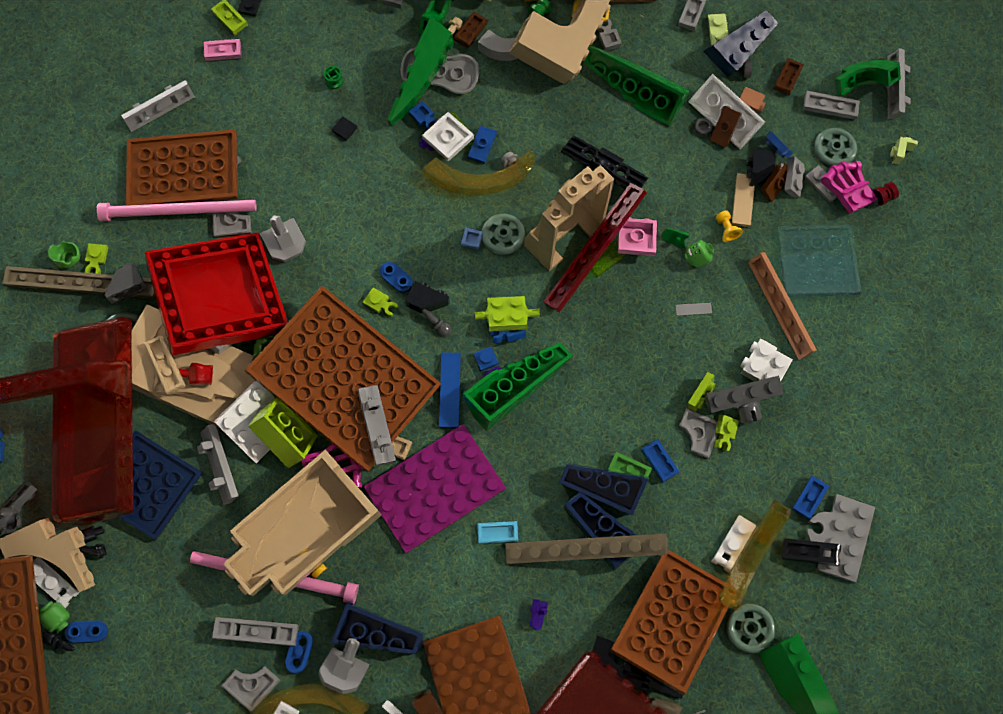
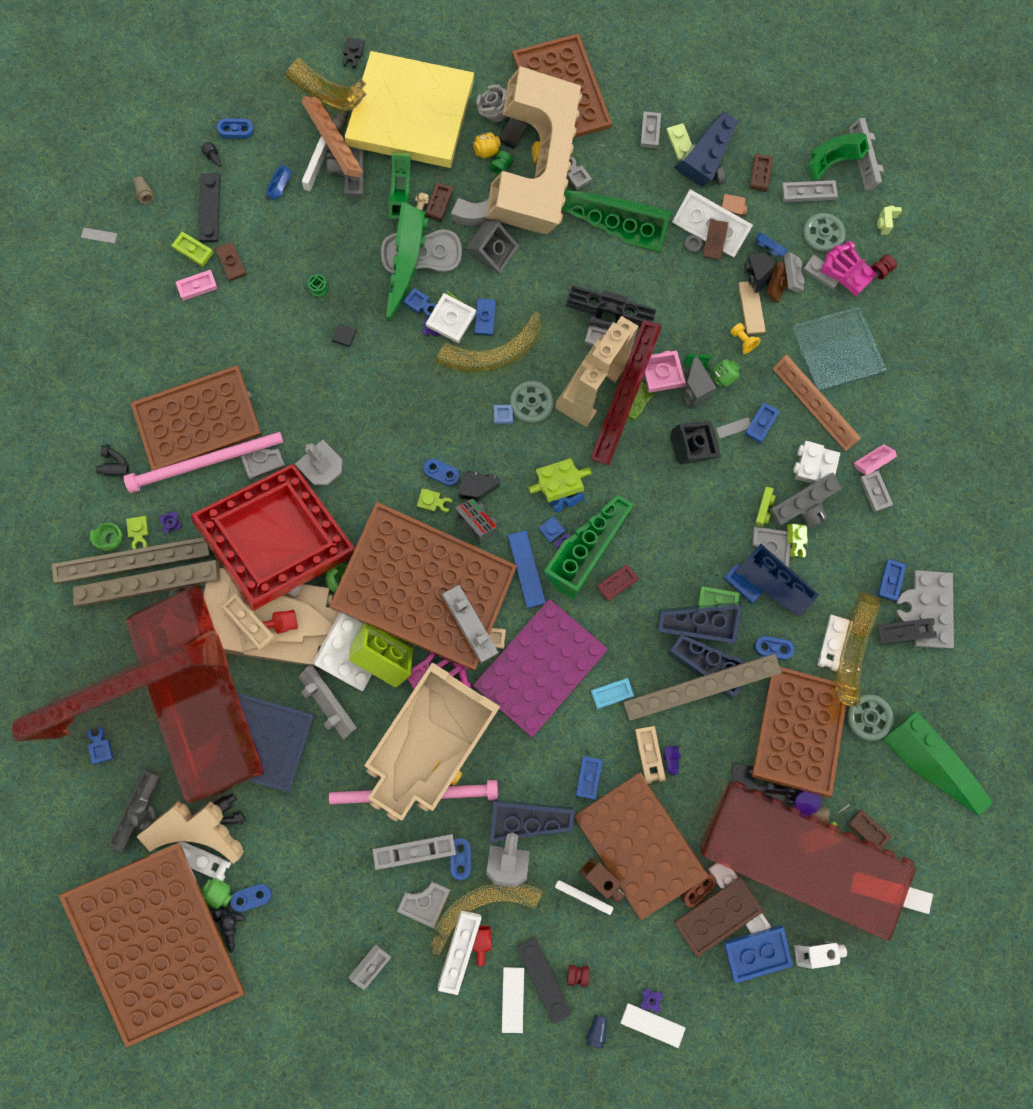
camera: 20 degrees left, 5 degrees up
(55, 650) = (228, 928): none -> black bar
(85, 306) = (146, 583): none -> dark tan plate
(93, 195) = (113, 469): none -> black plant
(123, 253) = (164, 519): none -> dark purple plate
(125, 283) = (179, 549): dark grey slope -> none
(158, 105) = (150, 360): light grey hinge -> none
(261, 36) = (230, 261): none -> reddish brown plate
(414, 330) = (476, 521): none -> dark grey slope
(443, 329) = (501, 511): dark grey bar -> none
(449, 608) = (588, 777): none -> blue plate
(509, 81) = (492, 246): none -> dark grey slope
(509, 159) = (516, 326): light grey plate -> none
(516, 602) = (649, 754): none -> tan plate
(534, 426) = (617, 583): none -> dark red plate
(650, 312) = (694, 442): none -> black slope
(660, 694) = (807, 802): none -> dark purple piece
(667, 258) = (698, 386): none -> dark grey slope
(672, 530) = (774, 646): none -> blue plate
(692, 465) = (777, 580): none -> dark blue wedge
(722, 310) = (762, 422): none -> blue plate
(818, 406) = (876, 491): none -> light grey plate
(826, 375) = (875, 459): none -> bright pink plate

